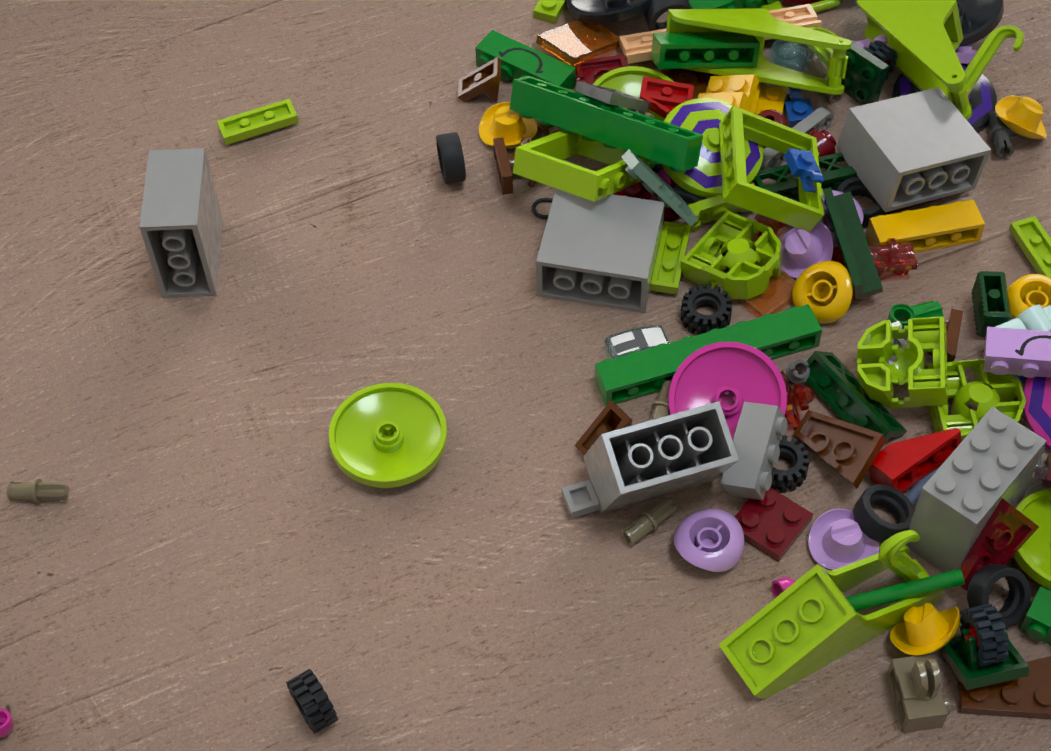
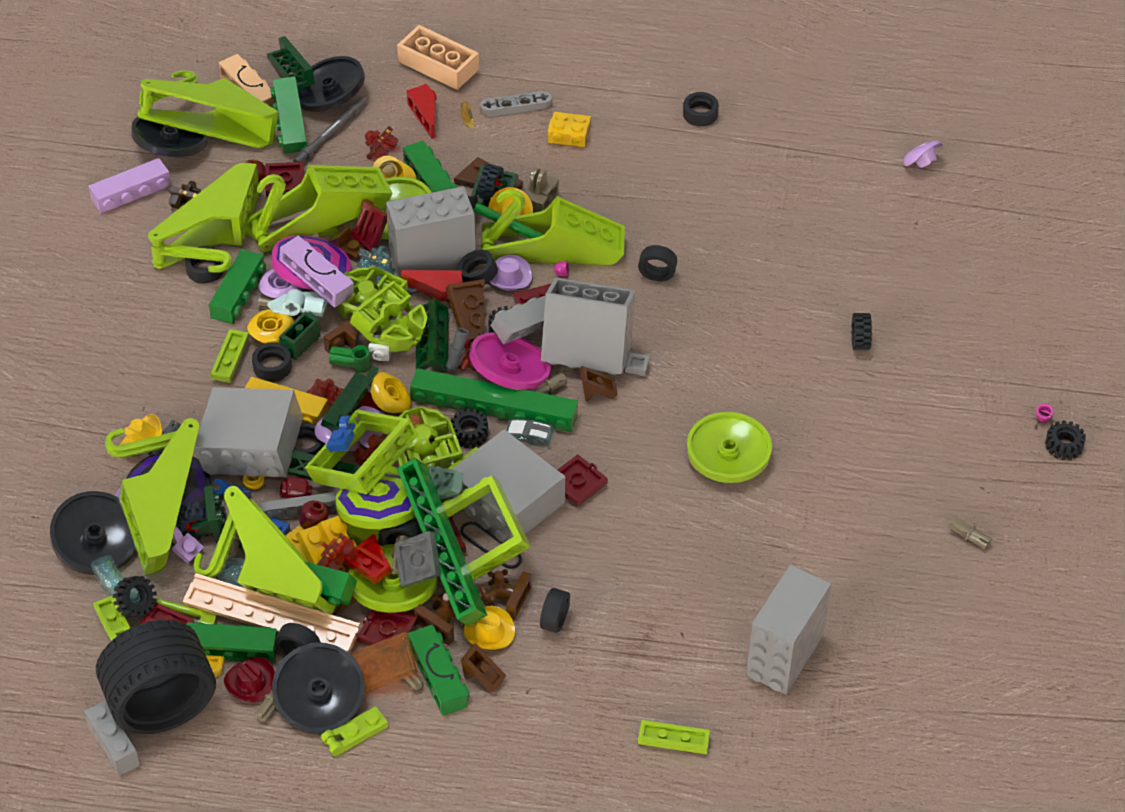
camera: 150 degrees left, 5 degrees down
(538, 315) = (581, 480): none -> dark red plate
(661, 653) = (655, 273): none -> black tyre
(699, 78) = (336, 550): none -> clear red hips
(990, 252) = (271, 373): none -> black tyre

